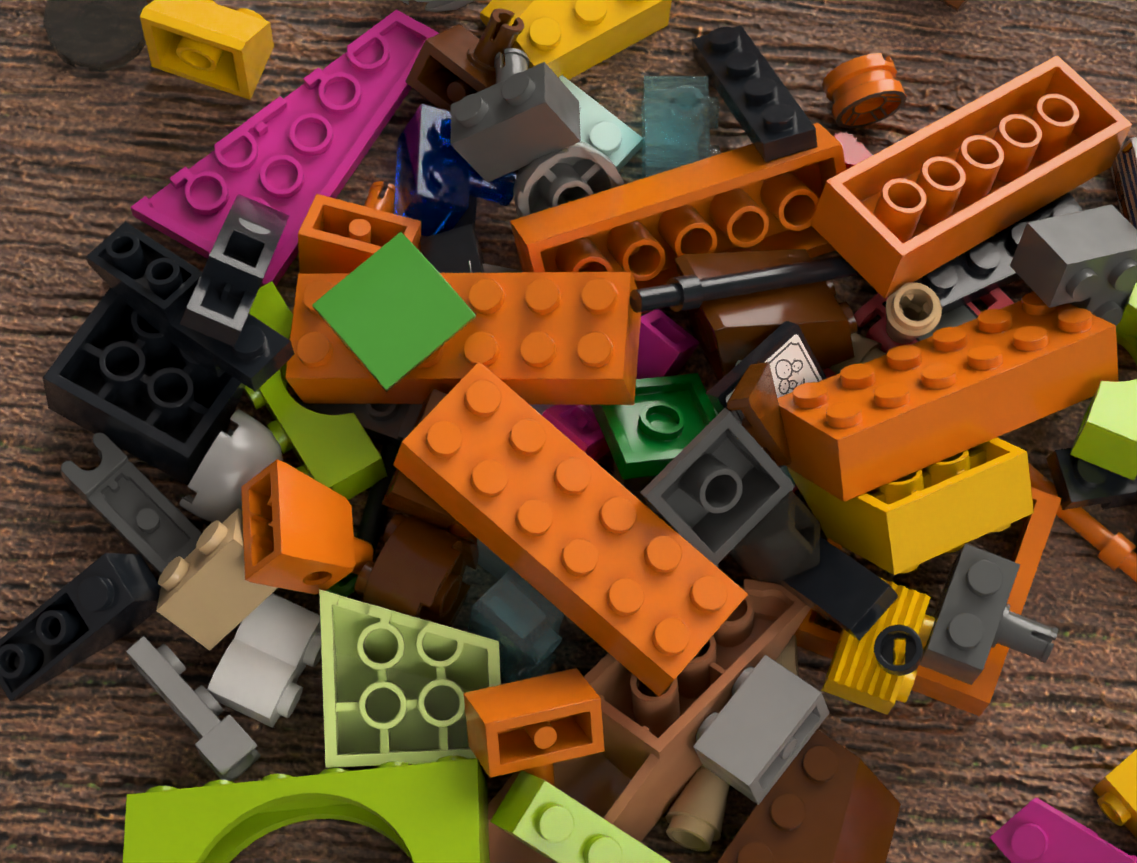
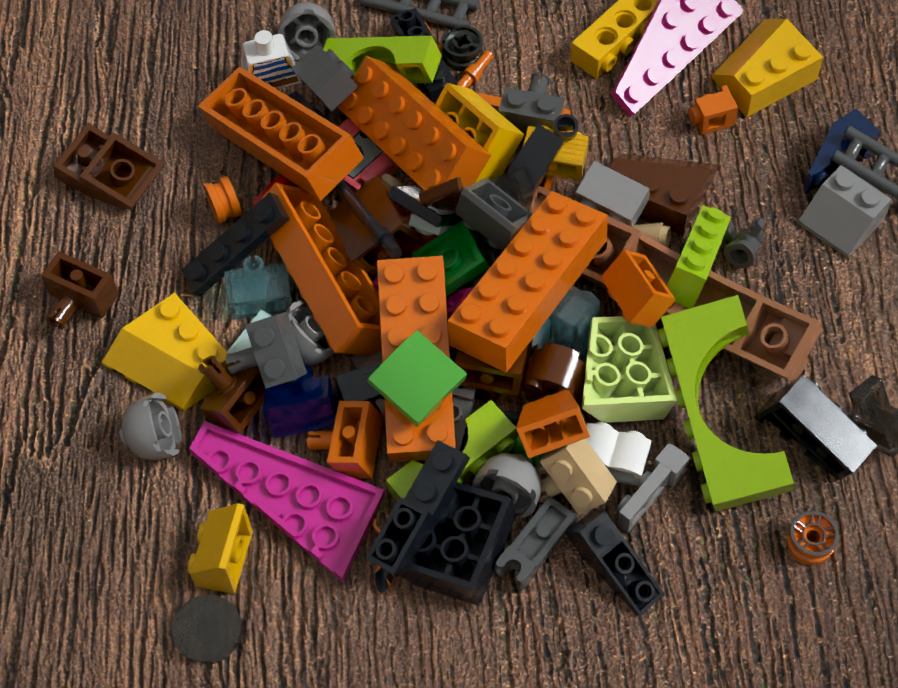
camera: 90 degrees left, 10 degrees down
(234, 270) = (388, 474): black slope -> none
(912, 312) = (371, 148): tan cone -> none

